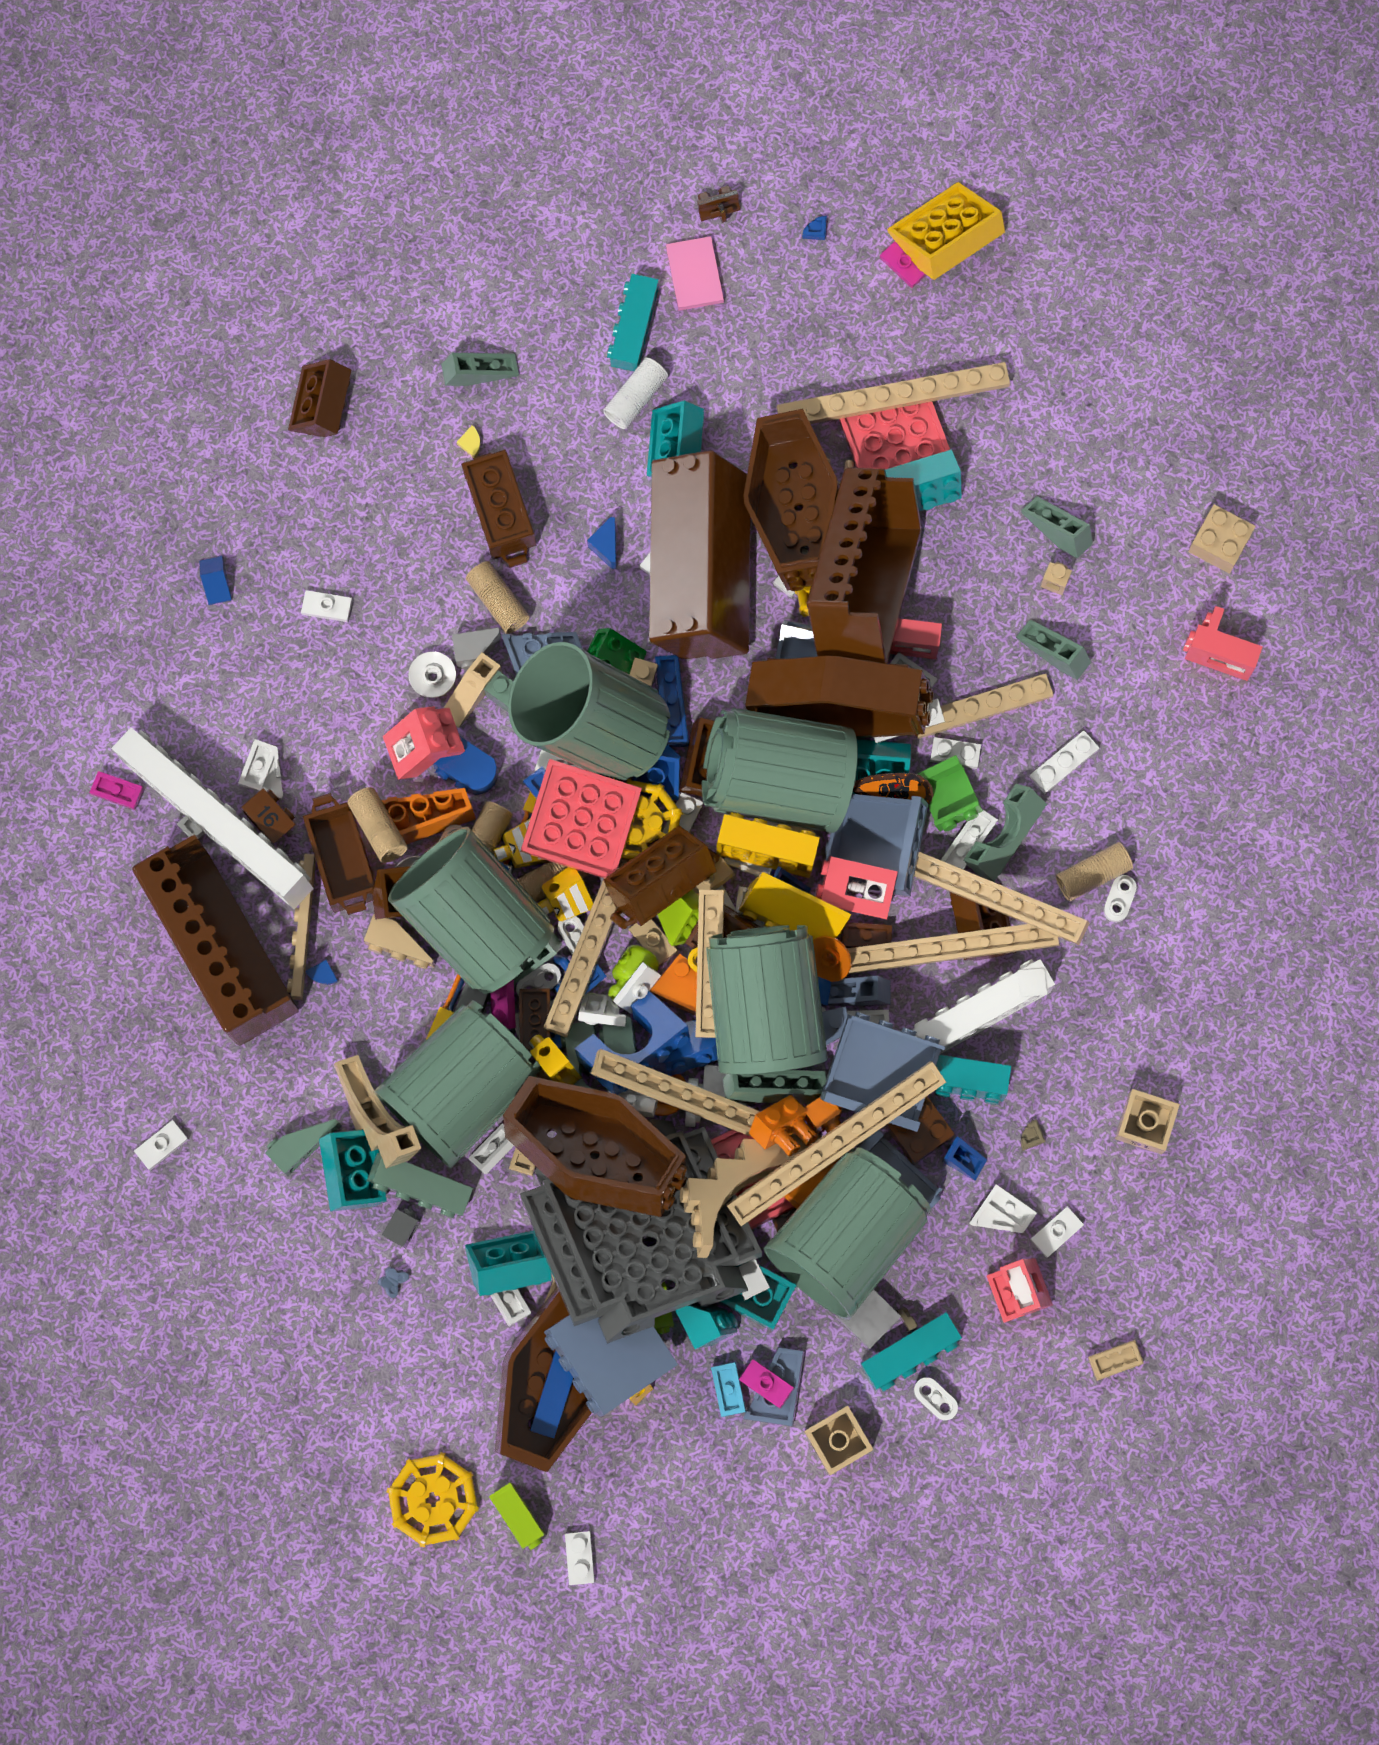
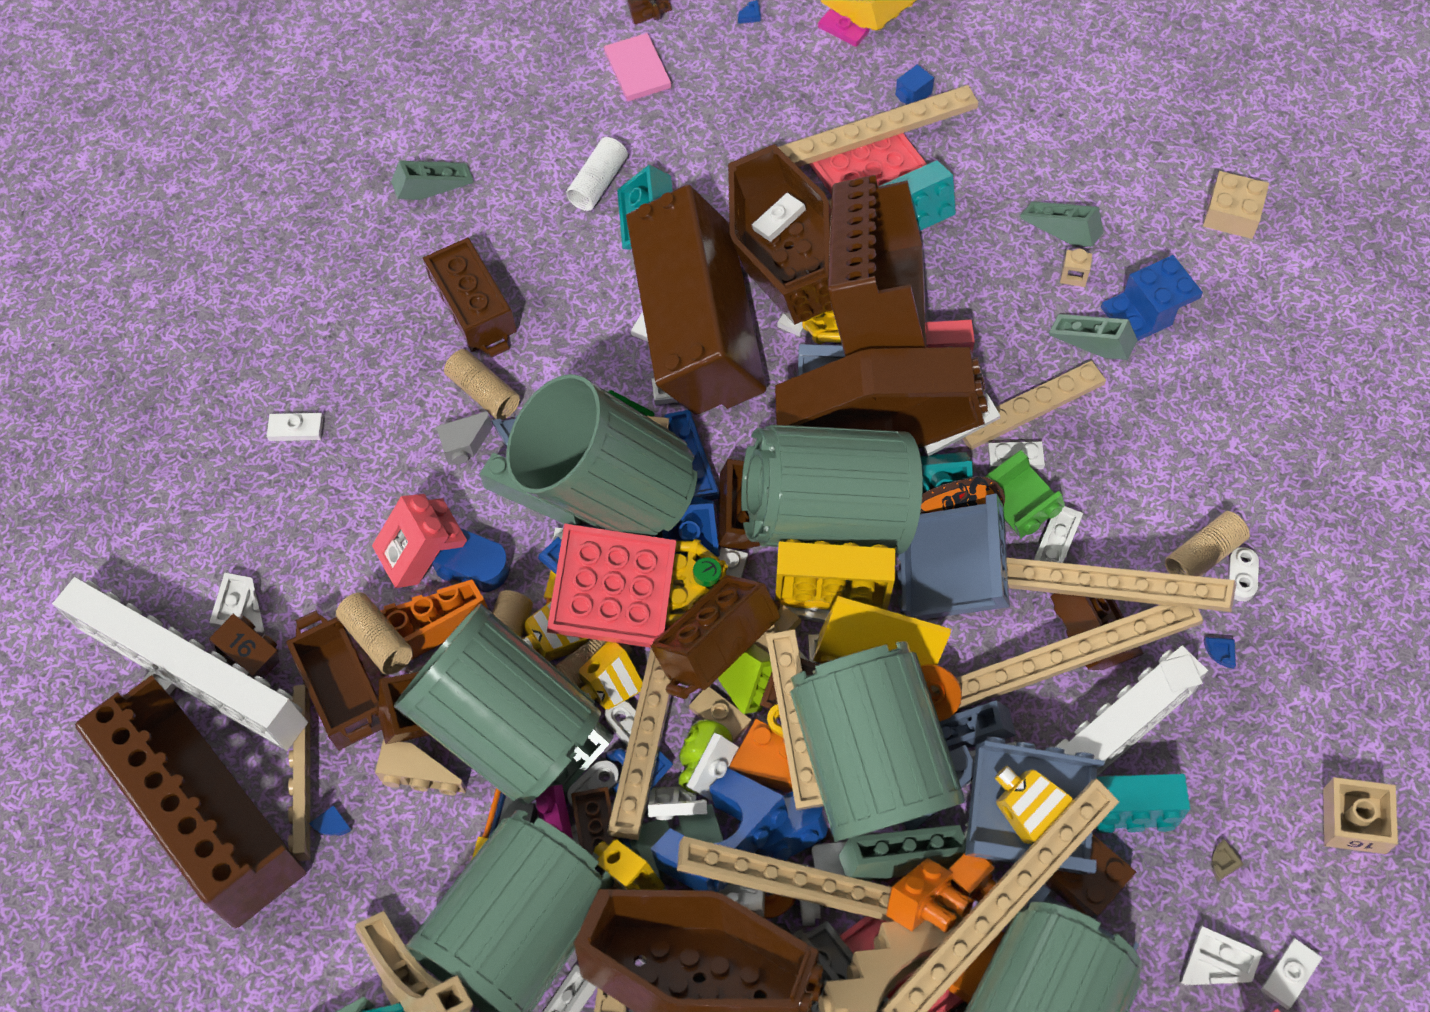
camera: 10 degrees left, 15 degrees down
(116, 790) = (67, 657): dark pink plate -> none
(215, 580) = (168, 422): blue slope -> none
(320, 398) = (267, 231): reddish brown slope -> none
(432, 663) = (420, 463): white dish -> none
(470, 442) = (429, 244): light yellow tile -> none
(471, 688) = (465, 479): tan slope -> none
(604, 543) = (588, 316): blue slope -> none
(634, 322) = (584, 114): teal brick -> none
(663, 818) = (707, 572): none -> green tile
(794, 478) = (778, 217): none -> white plate
(835, 881) = (921, 601): coral brick -> none
(866, 934) = (968, 660): reddish brown plate -> none
(878, 1069) = (1030, 802): none -> yellow torso
(954, 350) = (914, 85): none -> blue brick
(964, 1159) = (1152, 902): blue slope -> none
(1022, 810) = (1108, 497): sand green arch -> none
(1064, 762) = (1137, 445): white plate -> none
(1081, 962) = (1221, 650): none -> blue tile
(1114, 624) = (1153, 297): none -> blue bracket
(1220, 650) = (1274, 302): coral brick -> none

